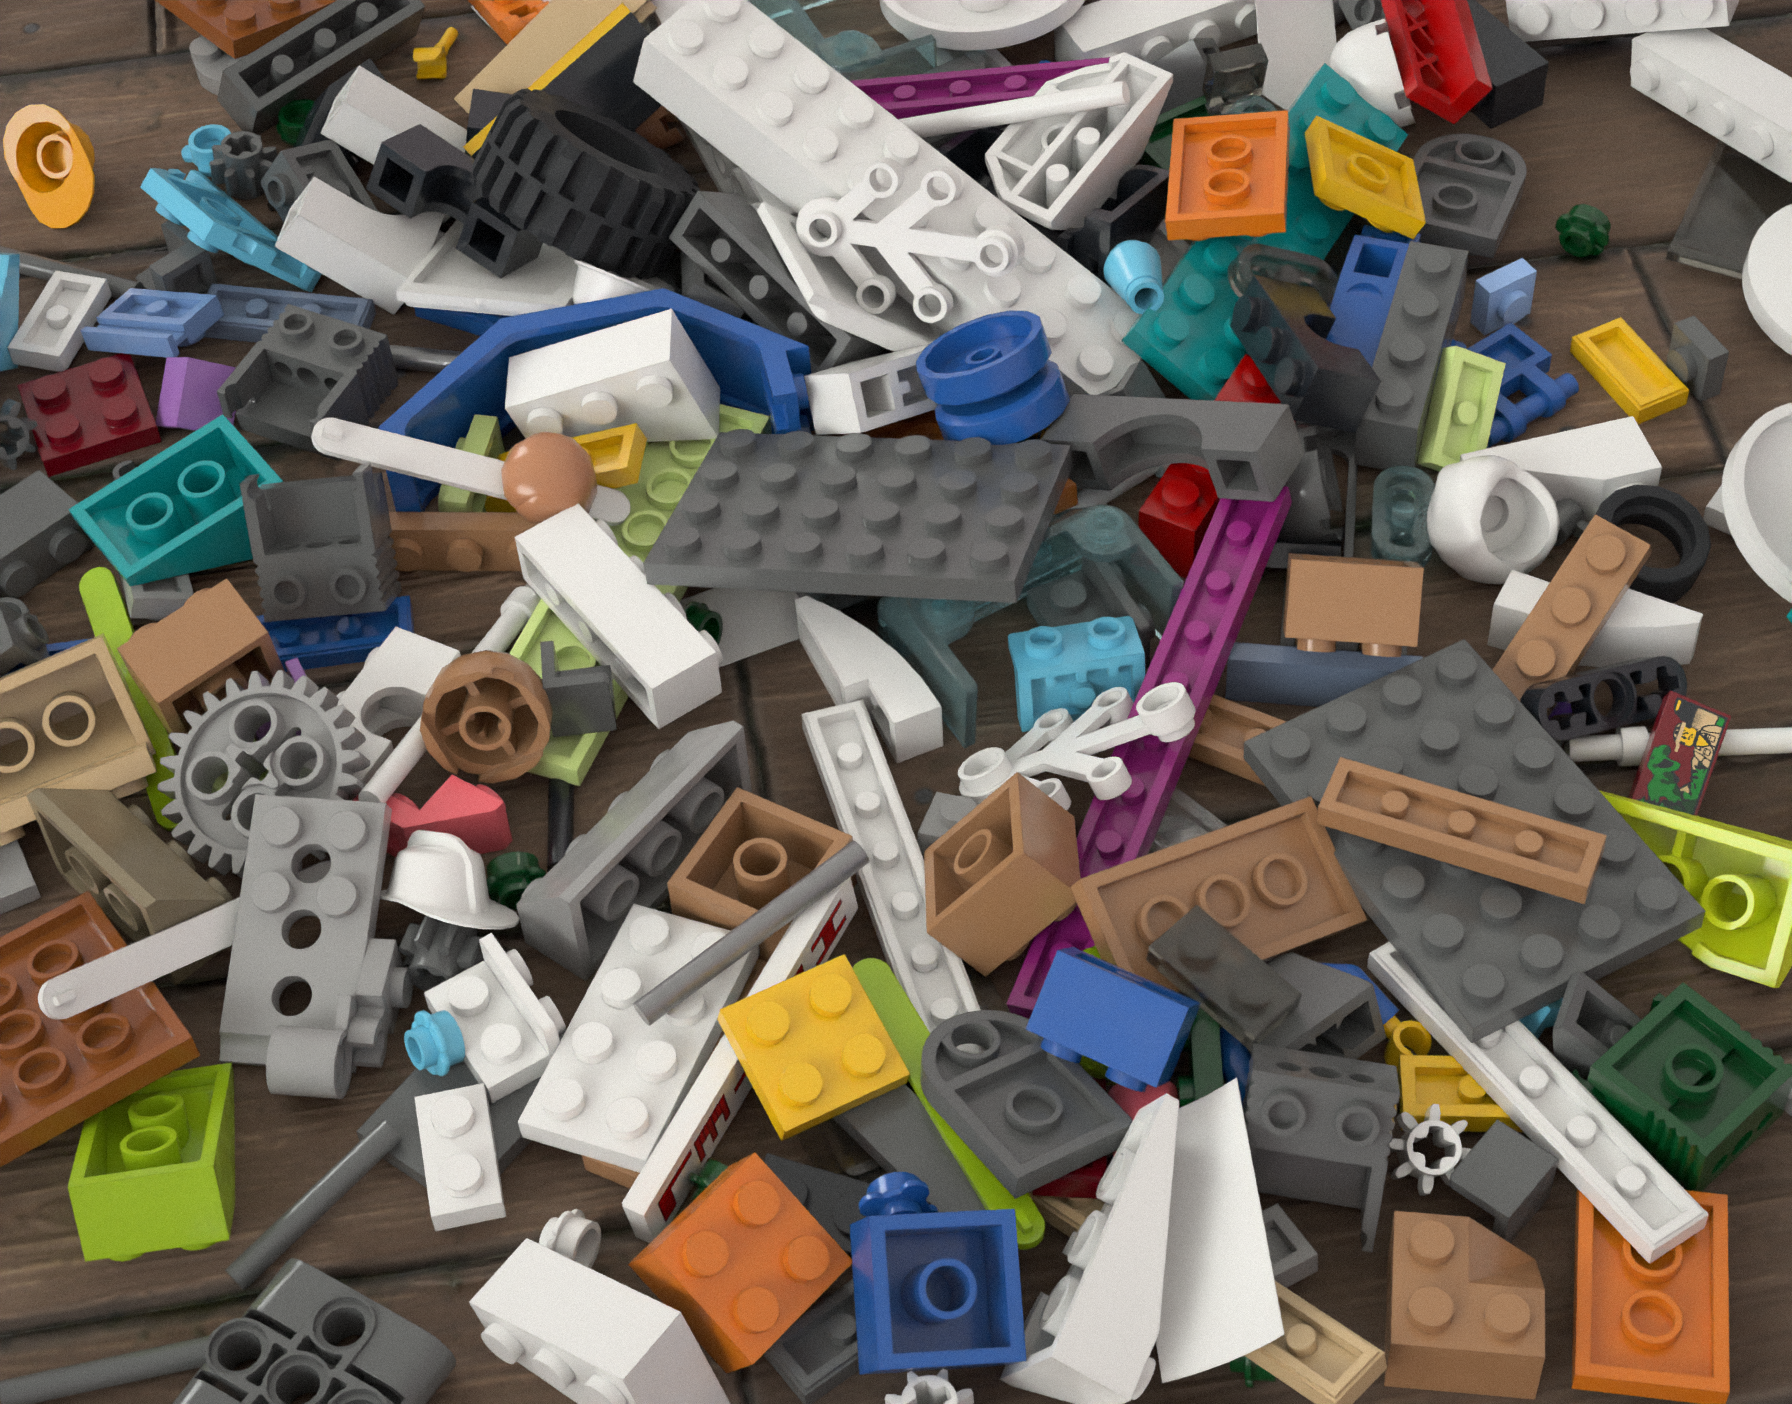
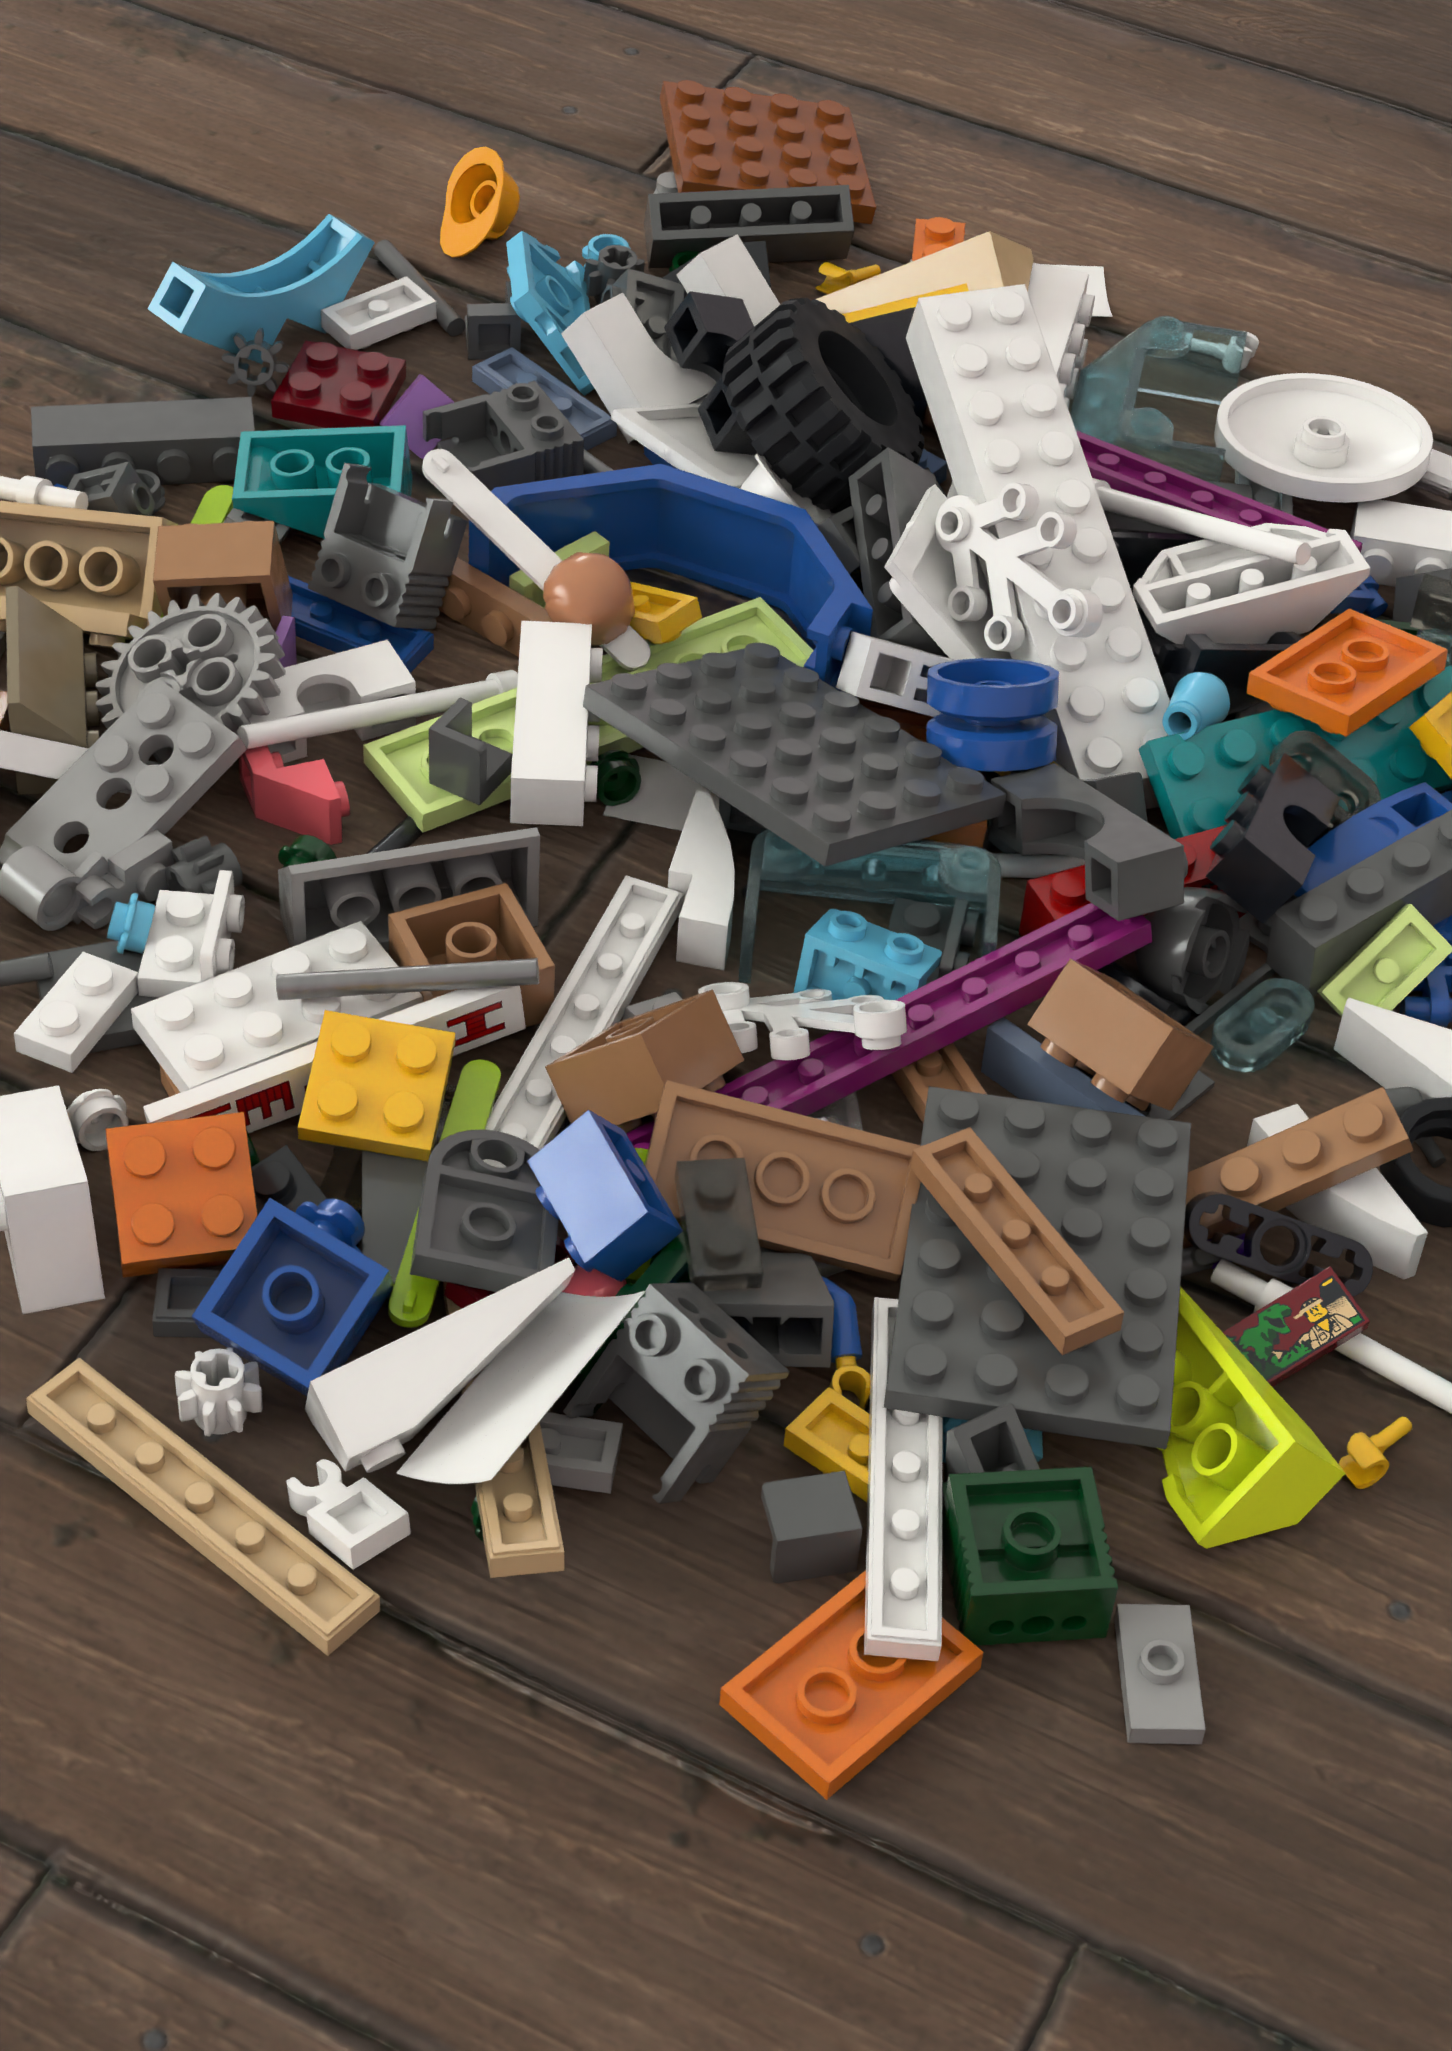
camera: 30 degrees right, 5 degrees down
(153, 322) = (439, 346): medium blue plate -> none
(446, 883) = (245, 829): white piece -> none
(487, 716) = (378, 729): medium nougat cylinder -> none
(615, 379) = (725, 558): white wedge -> none
(1443, 1137) = (779, 1443): white gear -> none
(1461, 1309) = (684, 1585): medium nougat slope -> none
(1491, 519) = (1321, 1053): white piece -> none

